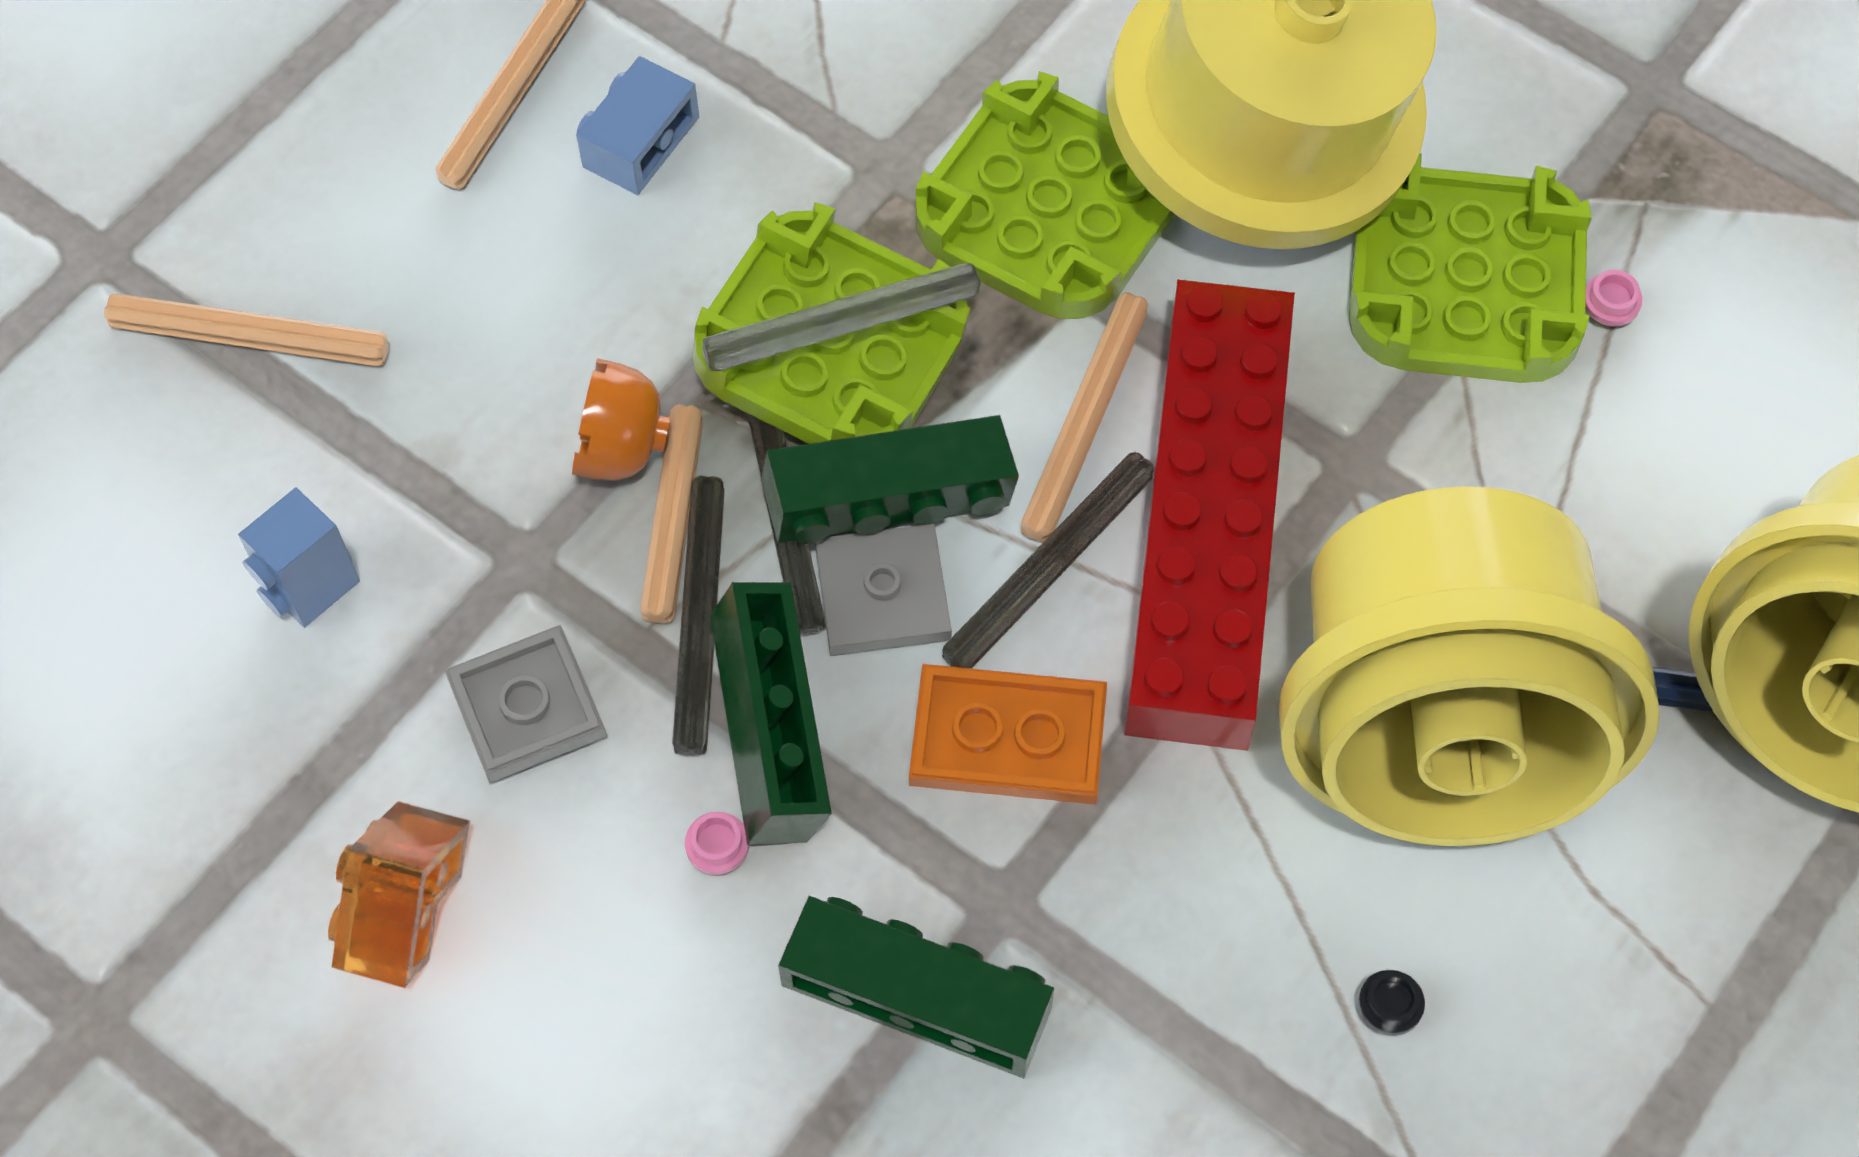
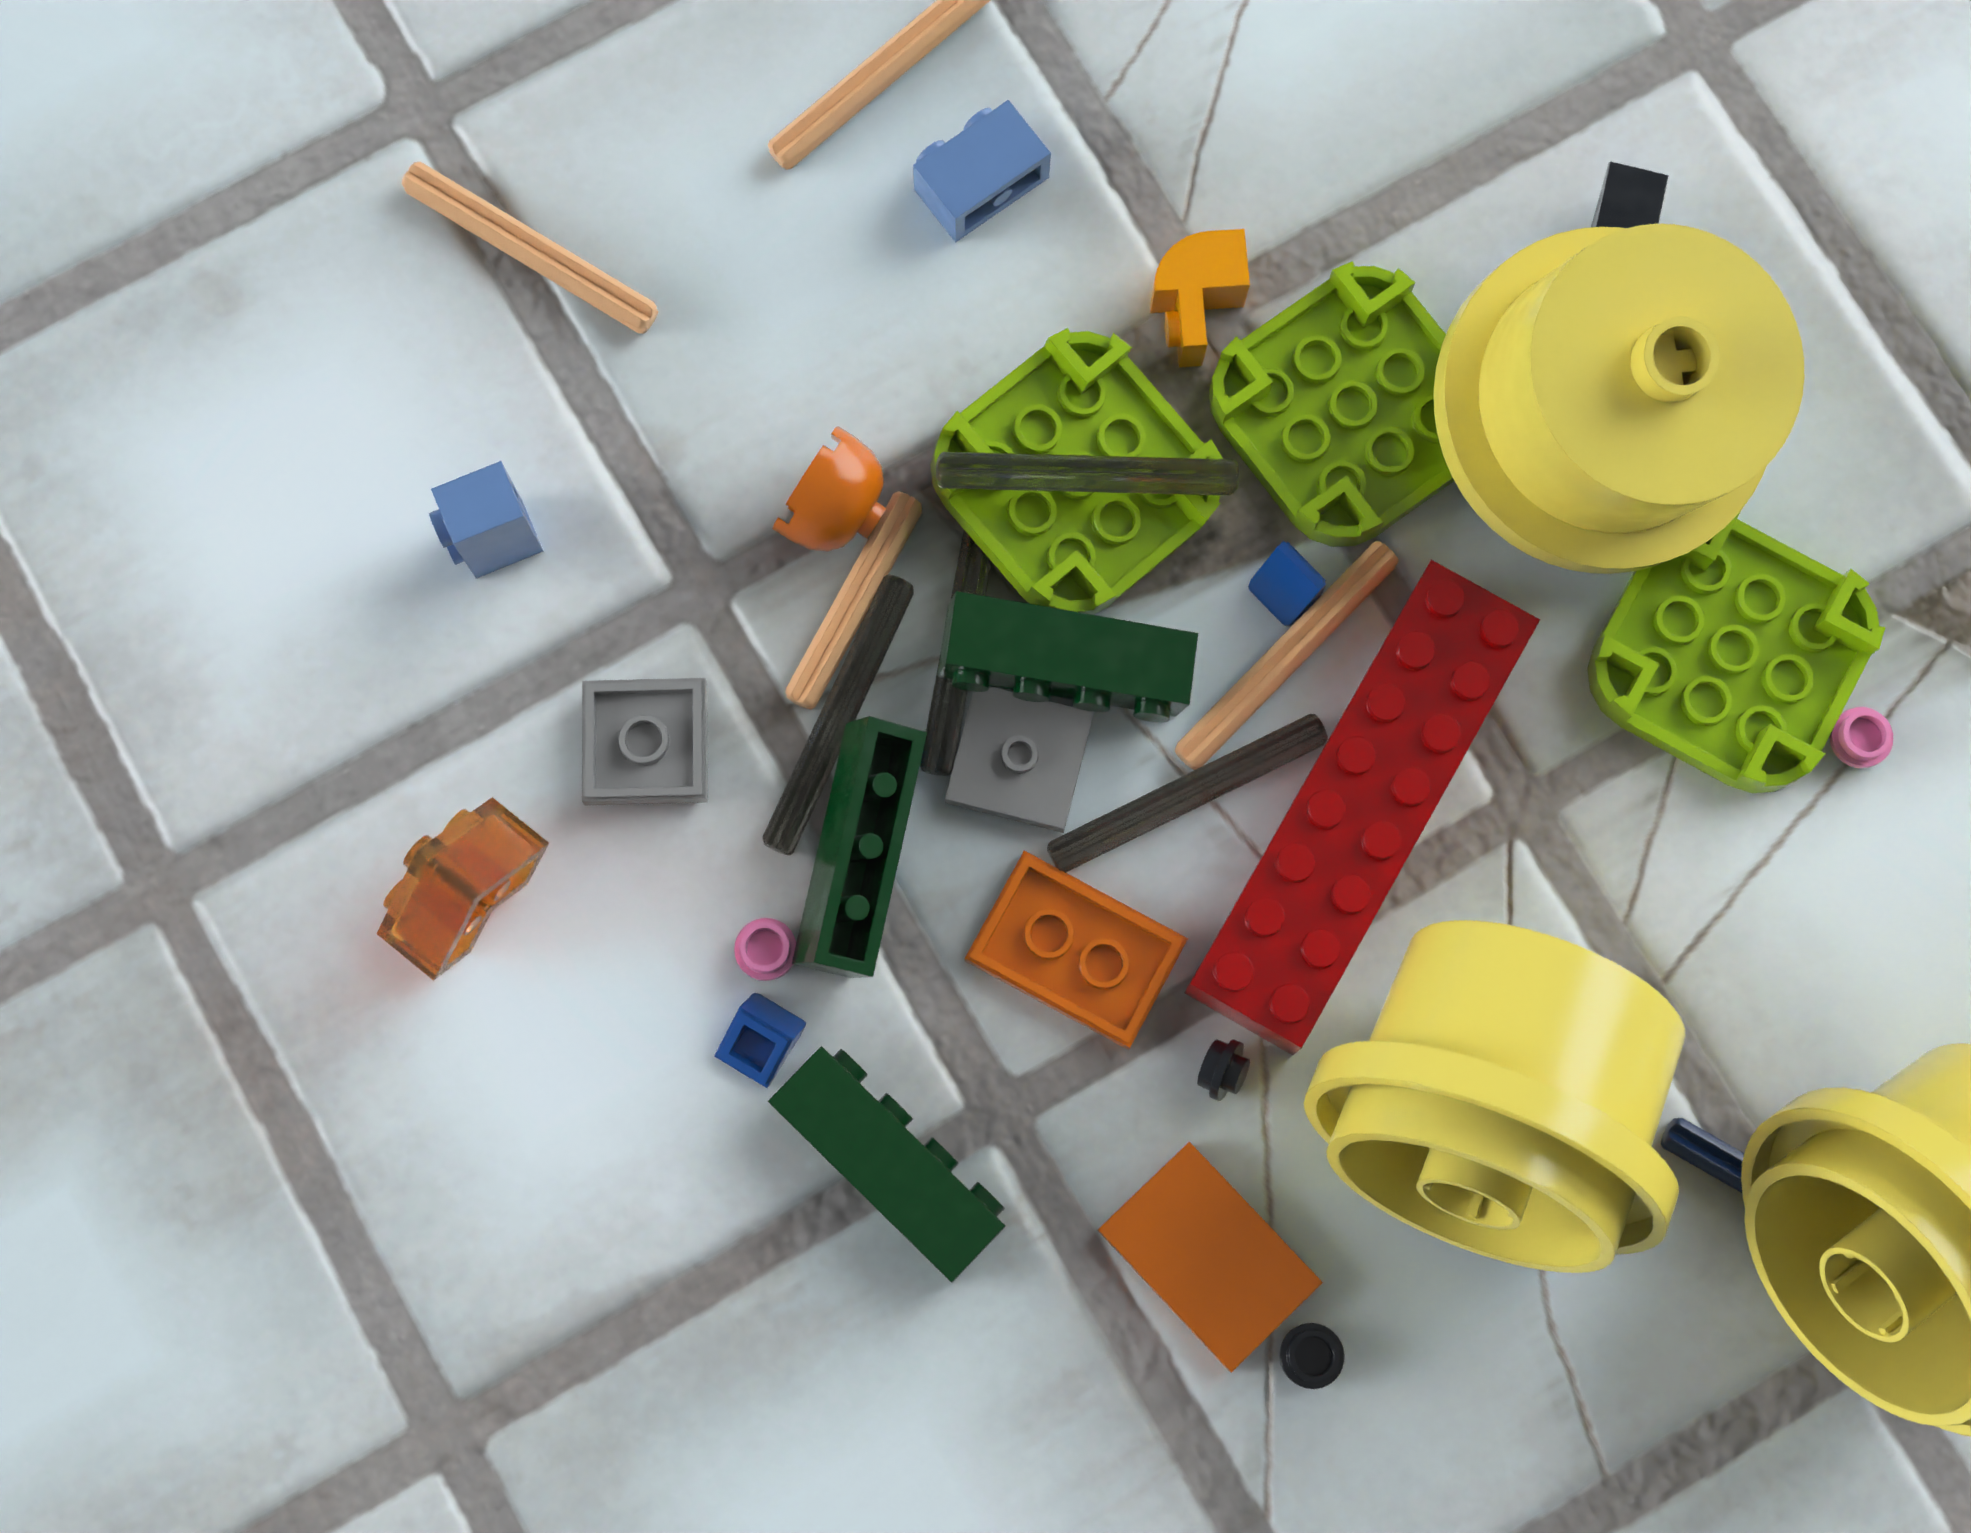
camera: 20 degrees right, 15 degrees up
(744, 928) = (760, 1039): none -> blue slope
(866, 145) = (1196, 276): none -> light orange brick
(1059, 355) = (1287, 584): none -> blue slope
(1192, 779) = (1223, 1069): none -> black plate
(1255, 953) = (1210, 1257): none -> orange tile

